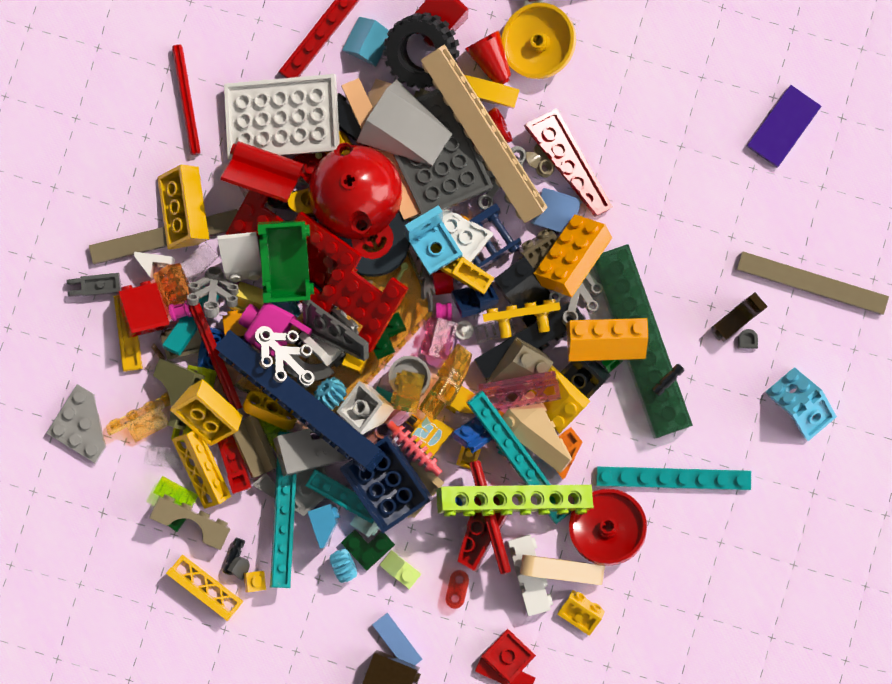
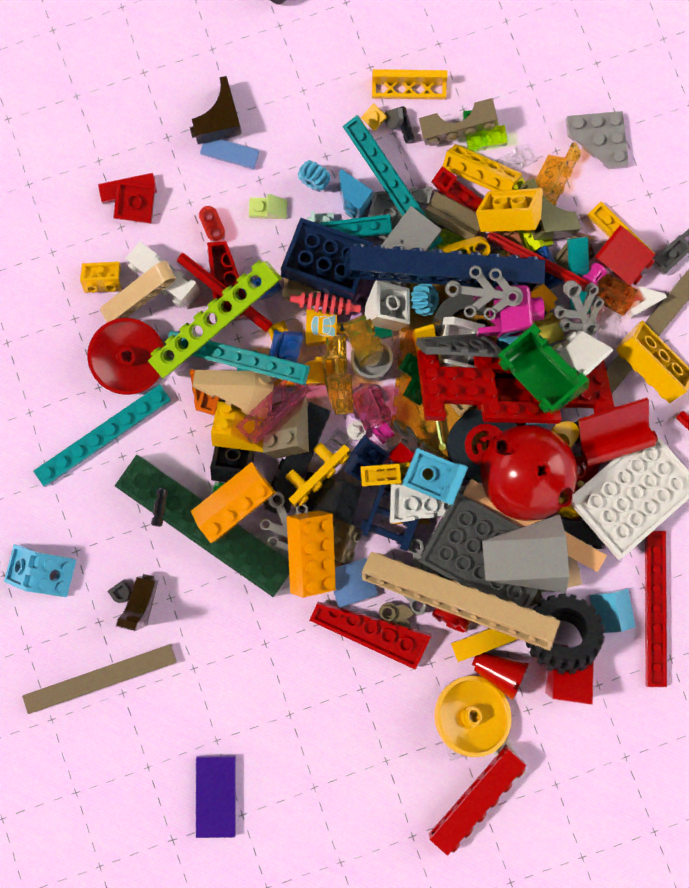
camera: 145 degrees right, 0 degrees up
(367, 553) = (304, 201): dark green plate -> none

